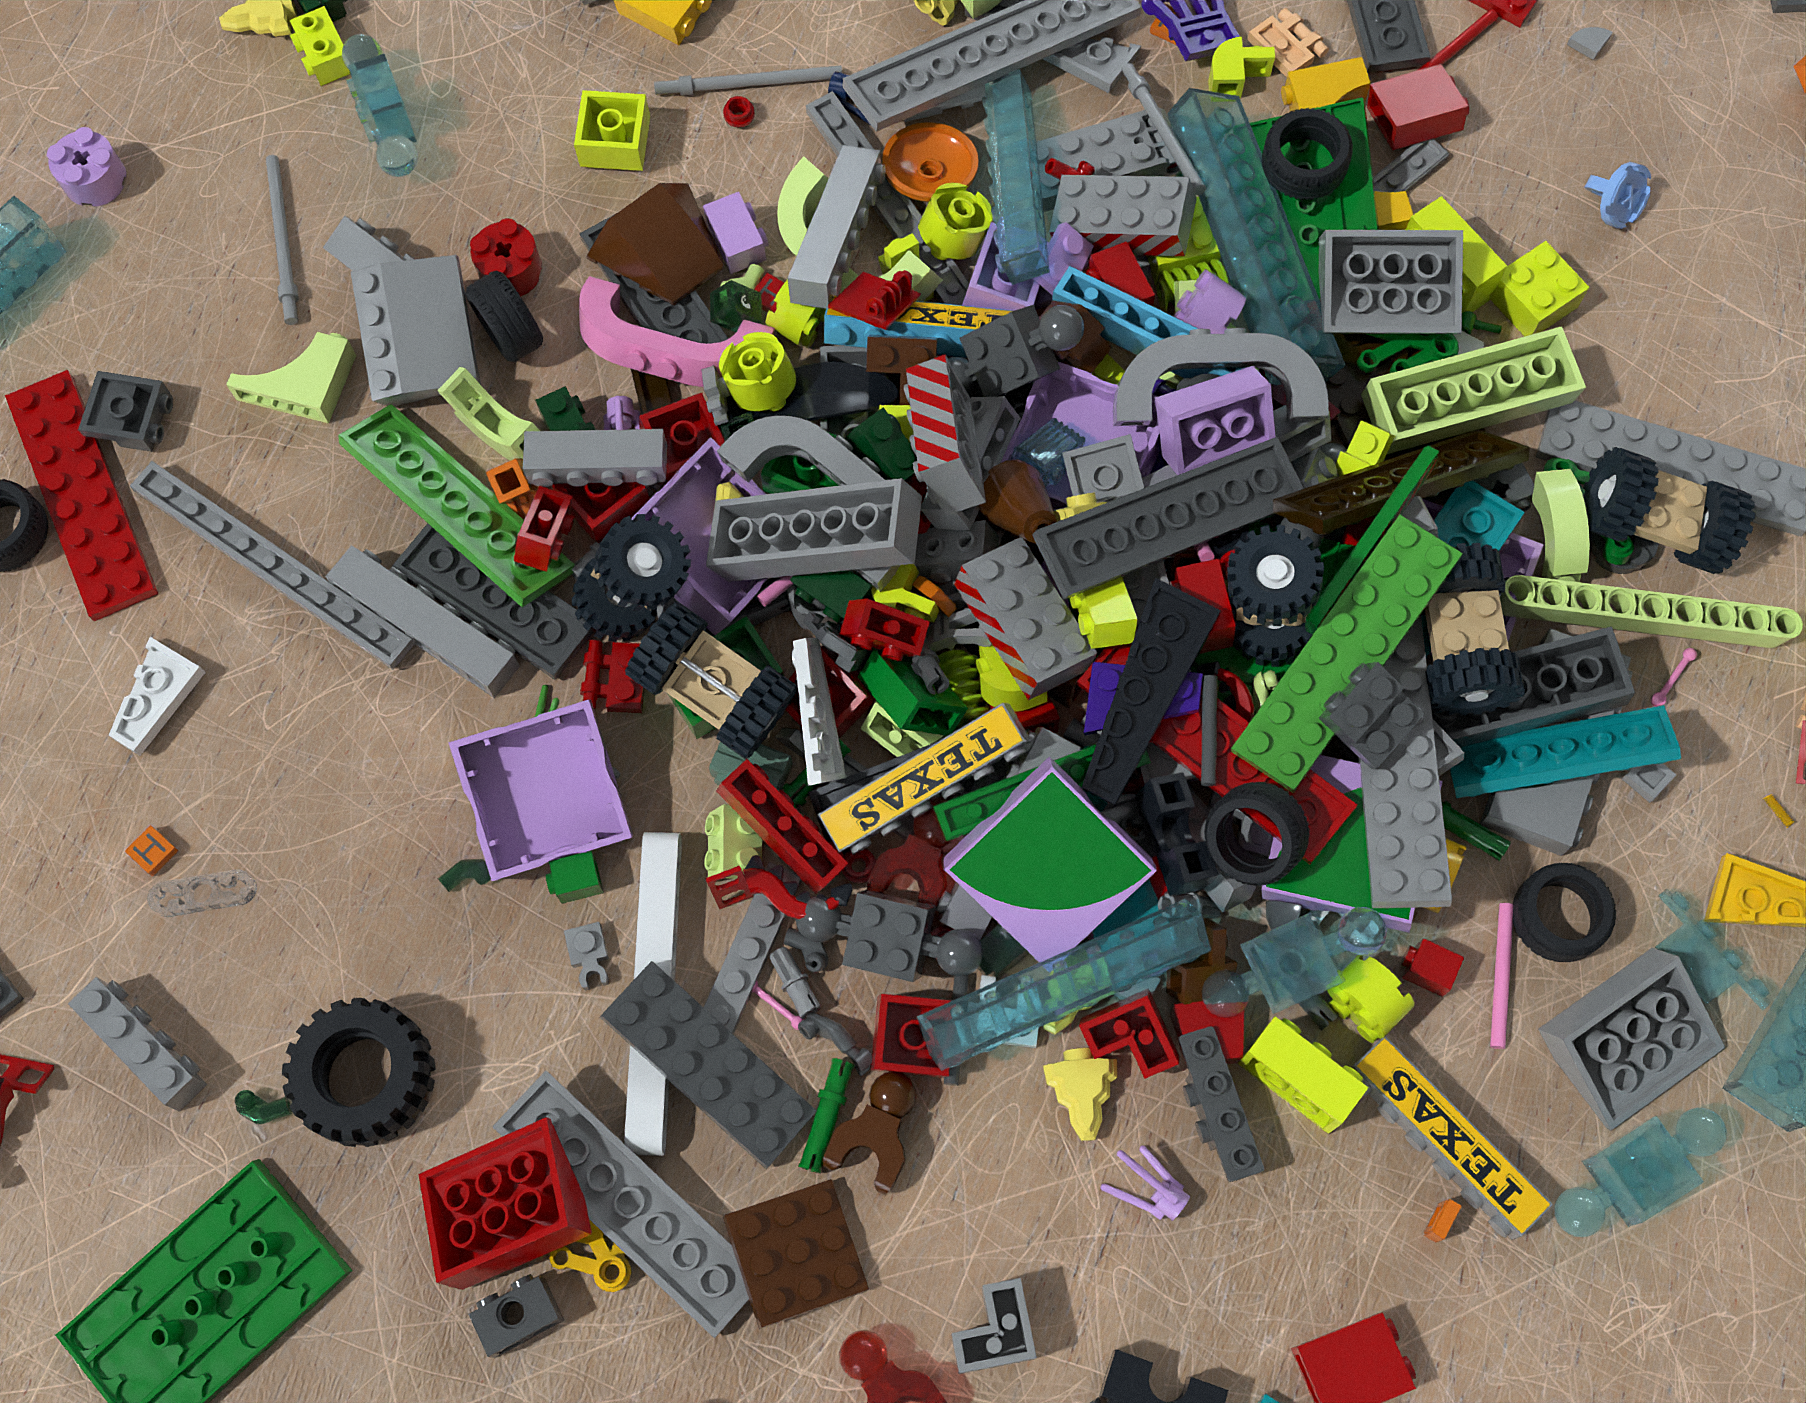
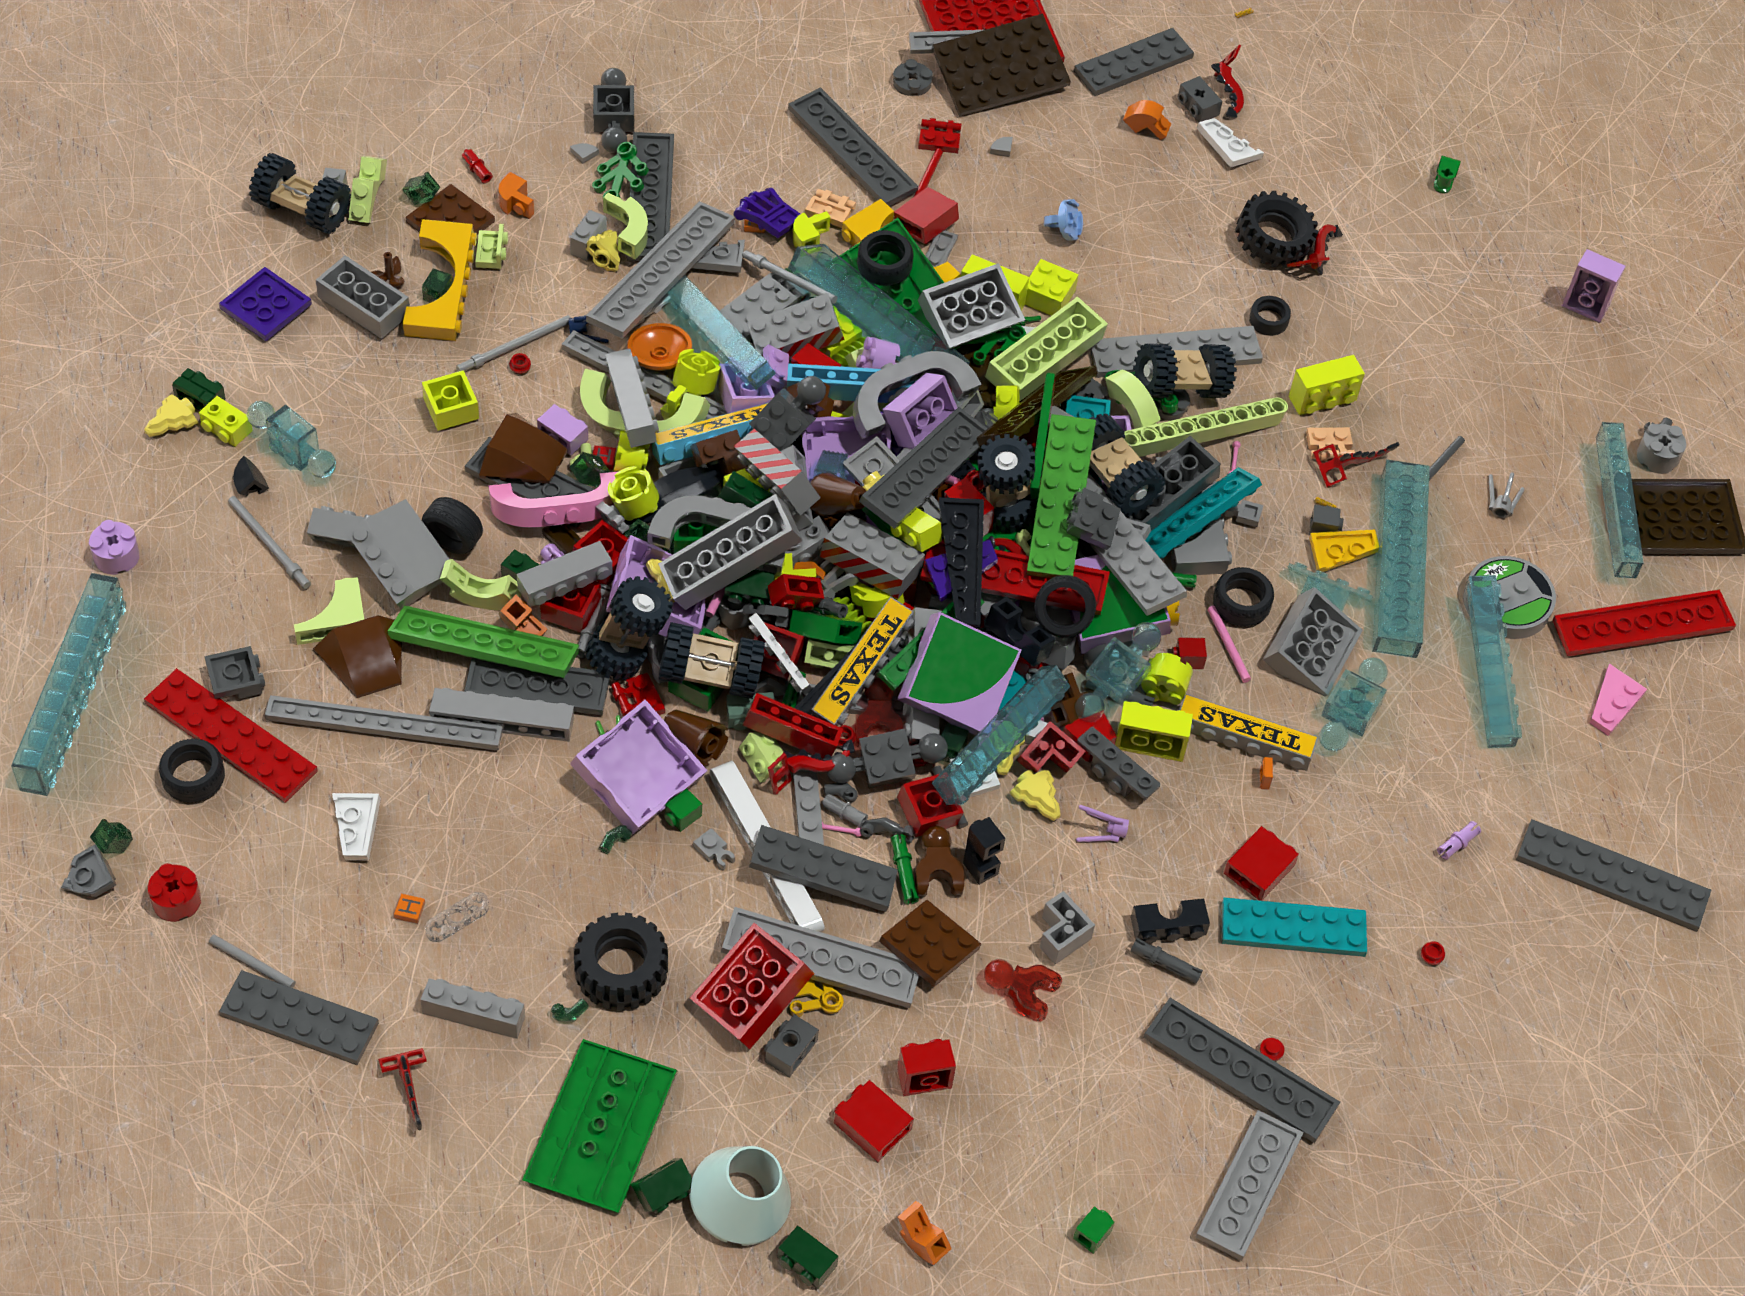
camera: 35 degrees left, 15 degrees down
(301, 456) = (363, 655): none -> reddish brown wedge
(307, 137) = (248, 478): none -> black brick
(510, 250) = (424, 489): red brick -> none
(542, 529) = (554, 628): red brick -> none
(652, 774) = (700, 735): none -> reddish brown cone
(876, 299) = (683, 426): red hinge -> none
(939, 1153) = (982, 844): none -> black arch
(1057, 168) = (742, 320): red arm -> none
(1209, 730) = (1008, 566): dark grey bar -> none
(1761, 842) = (1325, 519): none -> dark grey brick

